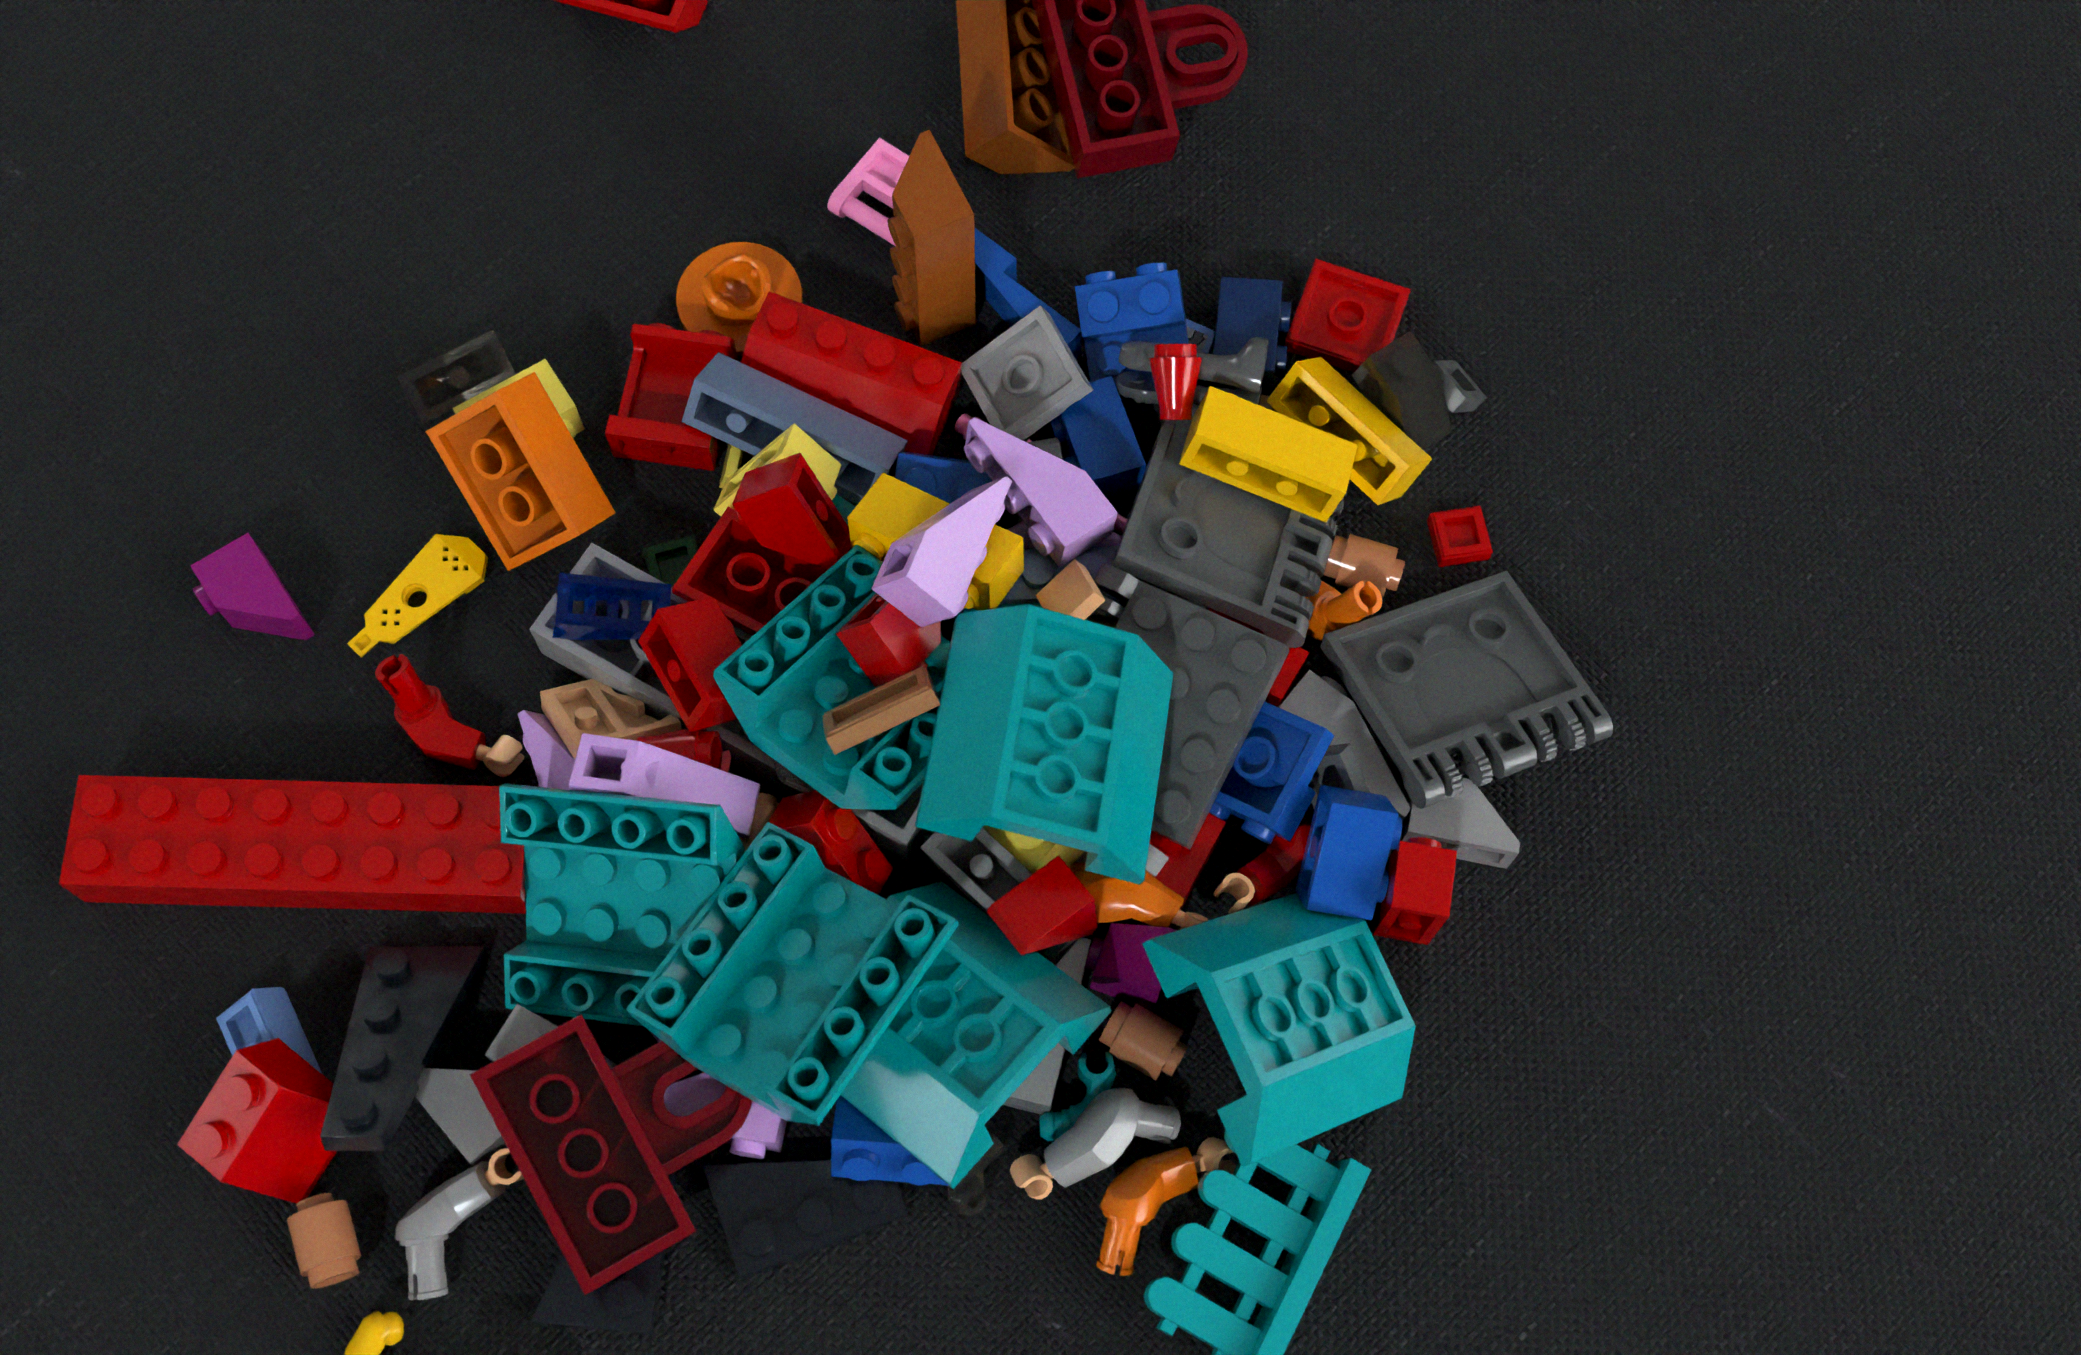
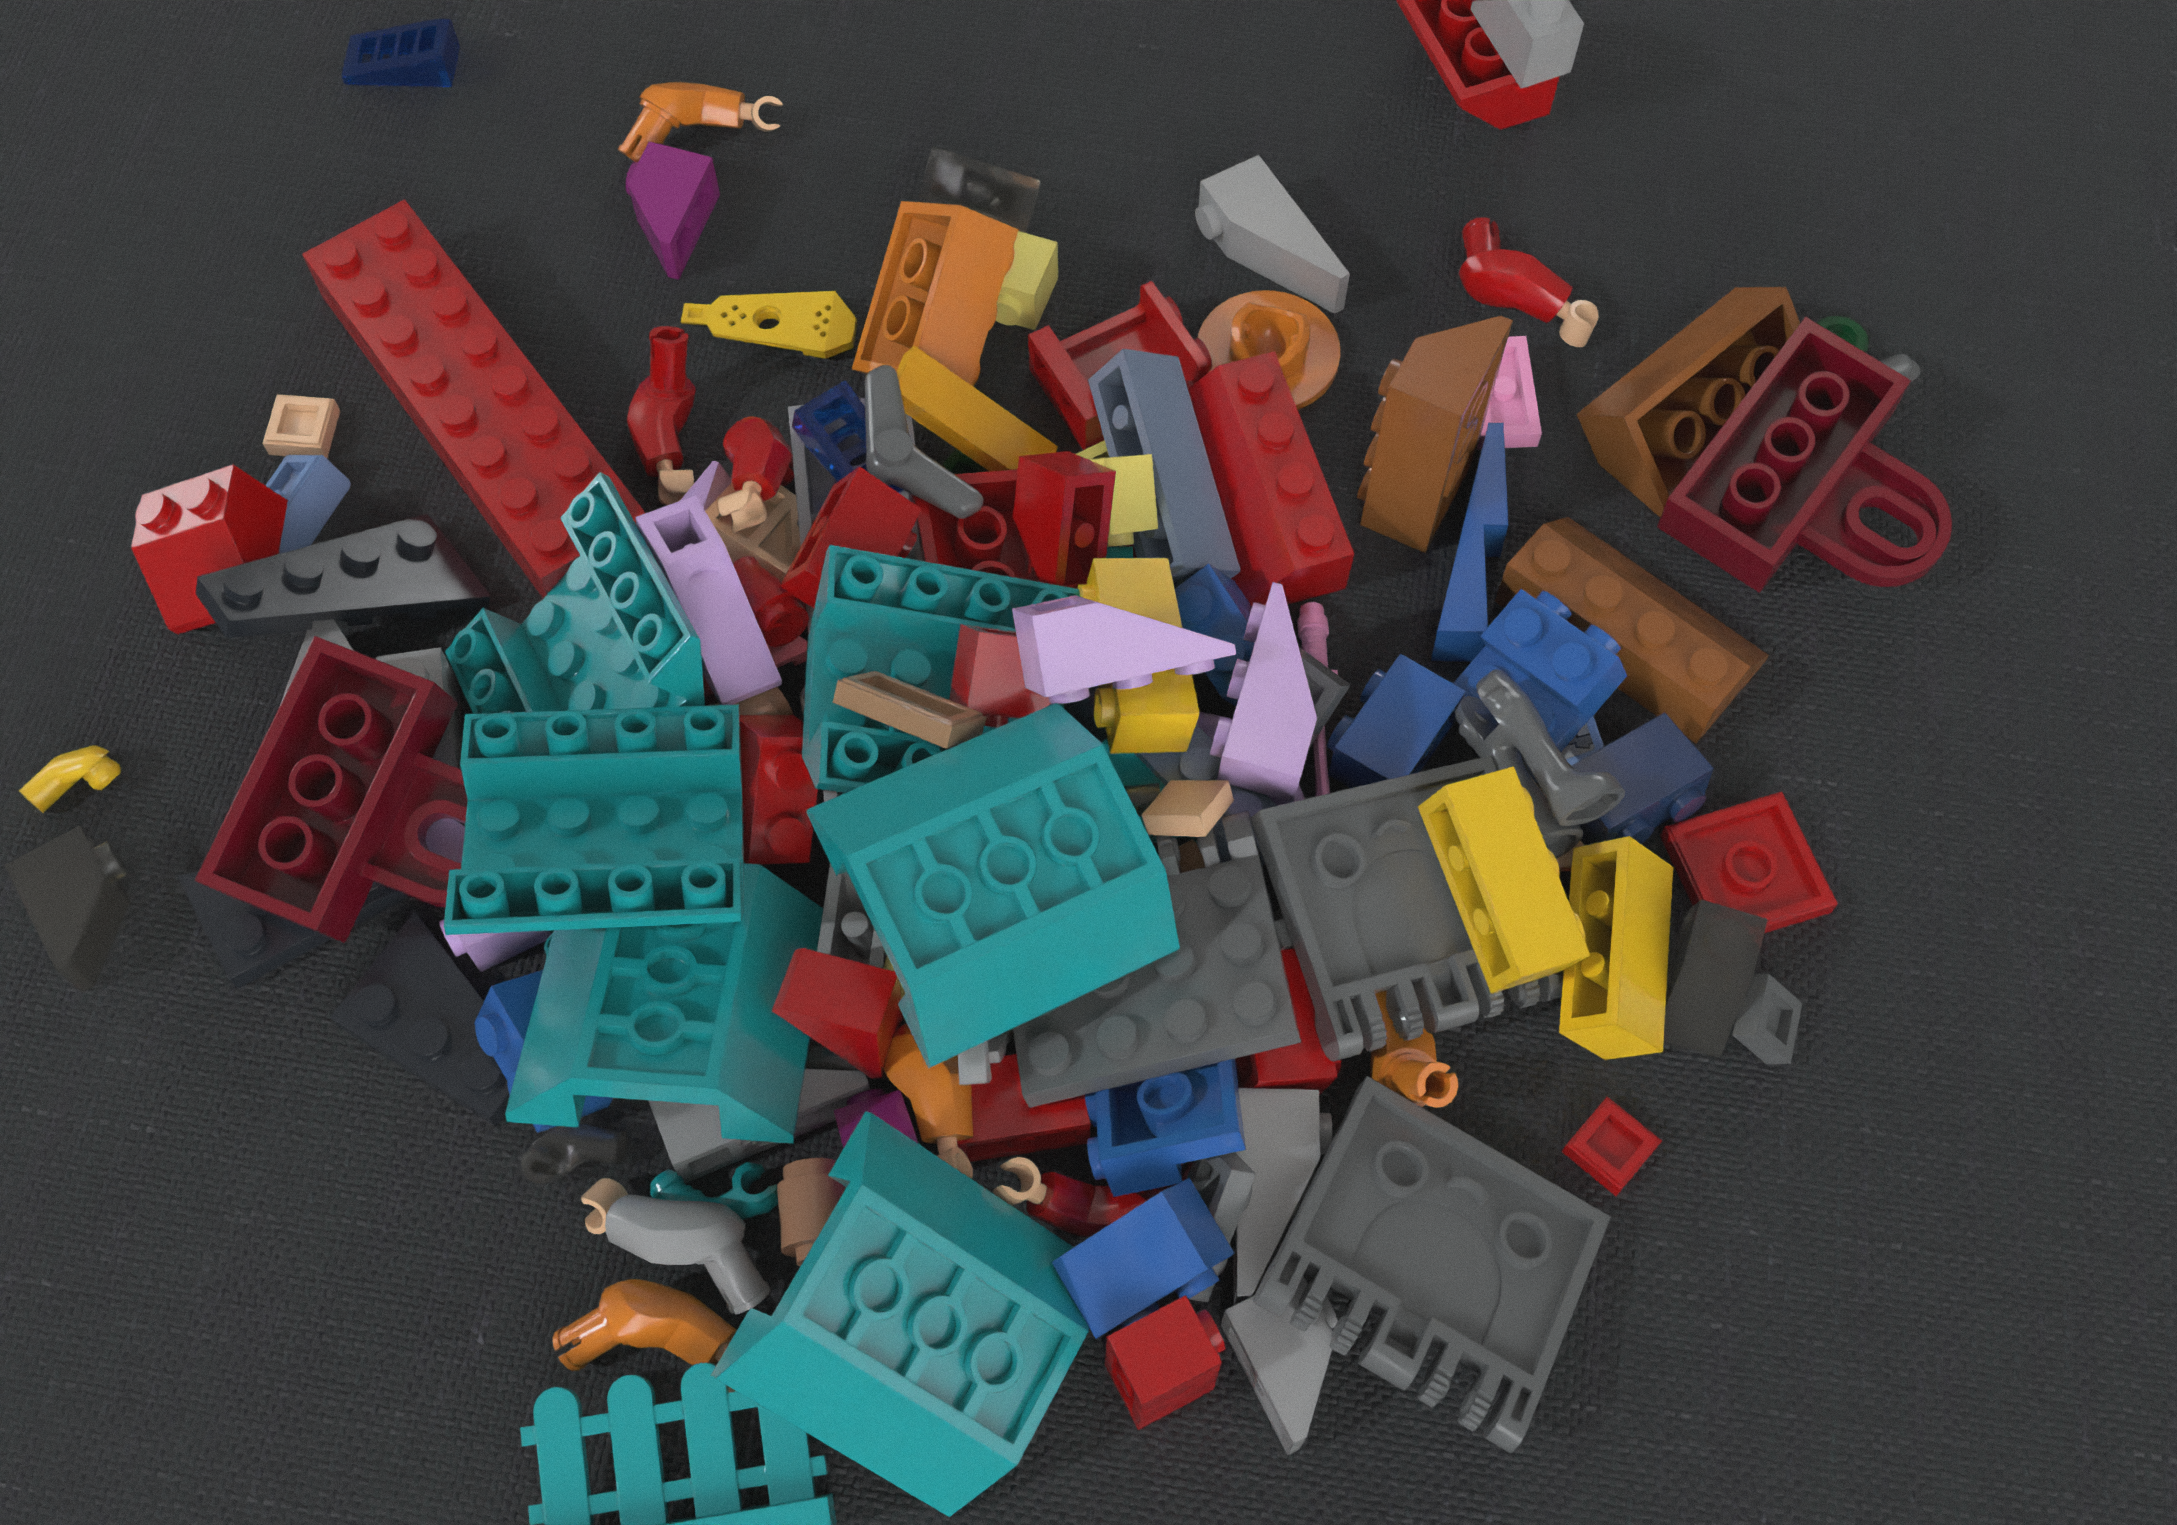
camera: 55 degrees right, 5 degrees down
(174, 517) = (687, 105): none -> orange arm
(199, 991) = (301, 426): none -> light nougat tile
(324, 1240) = (143, 667): nougat brick -> none
(439, 1213) = (201, 733): light grey arm -> none
(565, 677) = (759, 468): none -> red arm
(641, 520) = (965, 414): none -> light orange tile
(649, 583) = (898, 461): none -> dark grey piece
(653, 224) = (1269, 233): none -> light grey slope
(833, 109) = (1521, 282): none -> red arm
(1025, 376) = (1392, 619): light grey hinge -> none
(1175, 379) = (1495, 734): red cone -> none
(1188, 233) = (1670, 647): none -> dark orange slope
(1364, 560) = (1488, 1070): nougat brick -> none

